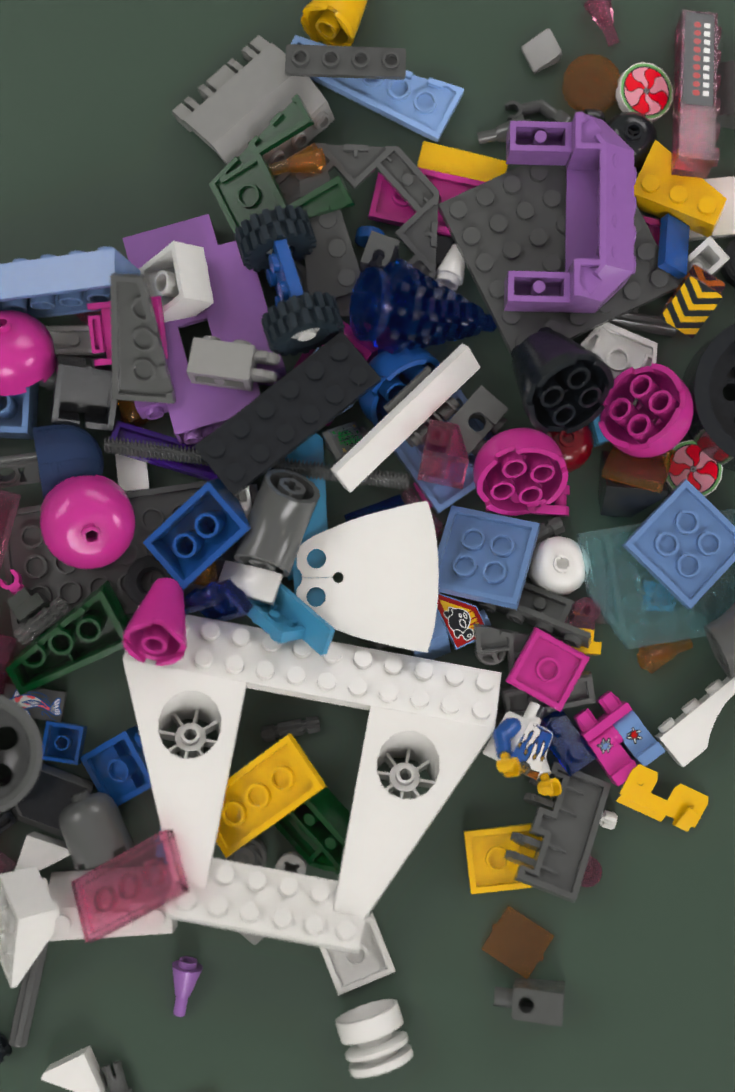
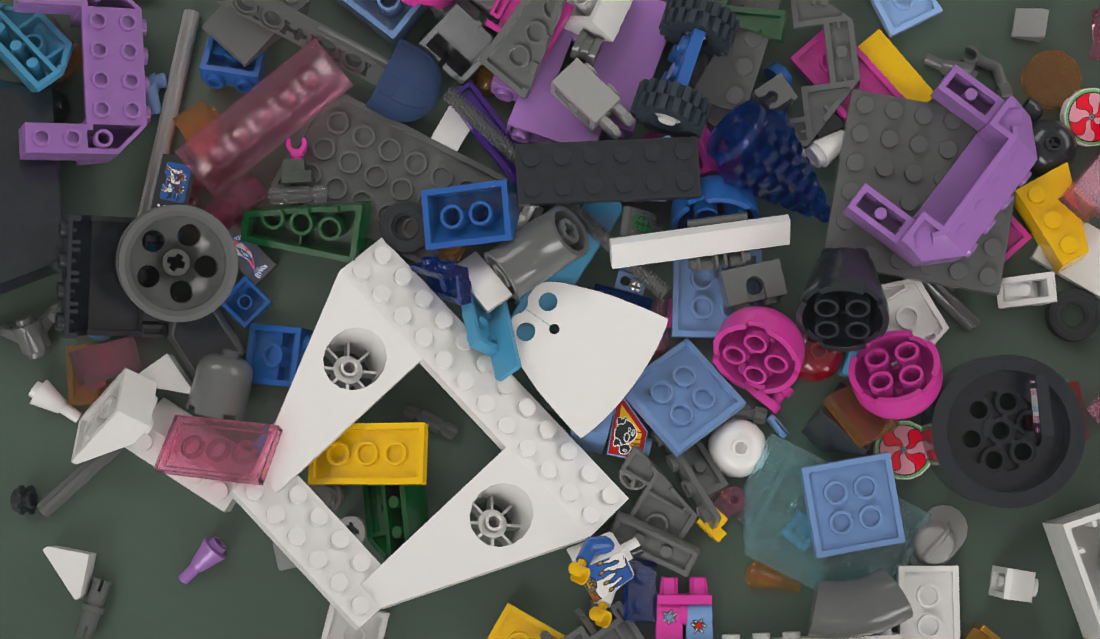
camera: 40 degrees right, 0 degrees up
(87, 521) = (390, 143): dark pink cylinder -> none
(158, 625) = (386, 264): dark pink cone -> none
(195, 323) = (586, 47): none -> dark grey wheel
(377, 494) = (633, 287): none -> medium blue piece
(444, 455) = (707, 293): clear pink slope -> none
(547, 669) = (667, 522): dark pink tile -> none
(577, 524) = (777, 426): none -> medium blue piece
(673, 246) = (1018, 259): blue tile -> none
(693, 301) = (1002, 314): piece -> none

